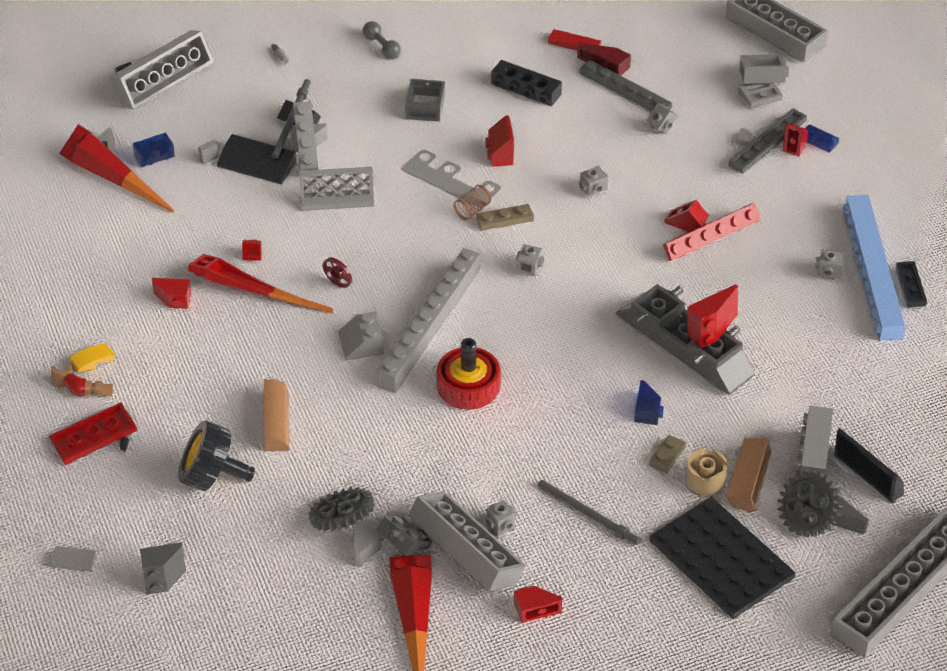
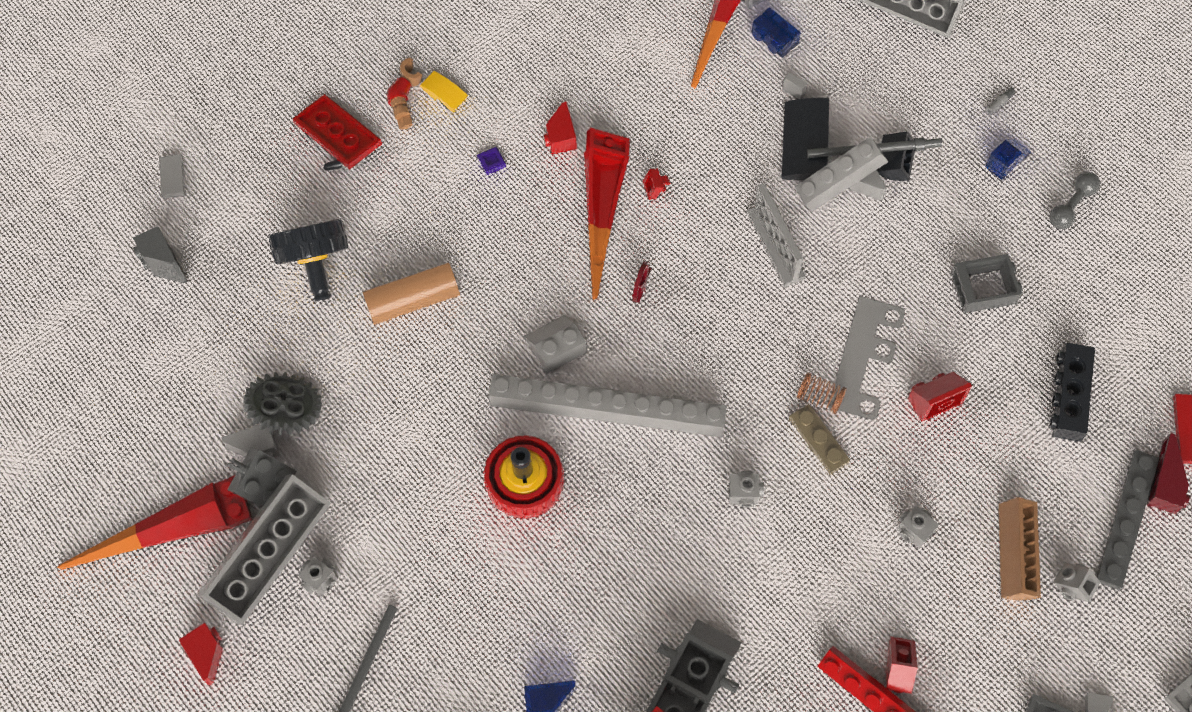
camera: 75 degrees right, 20 degrees up
(175, 344) = (491, 160): none -> dark purple tile
(330, 62) = (1006, 157): none -> clear blue slope
(627, 141) = (1019, 550): none -> medium nougat brick

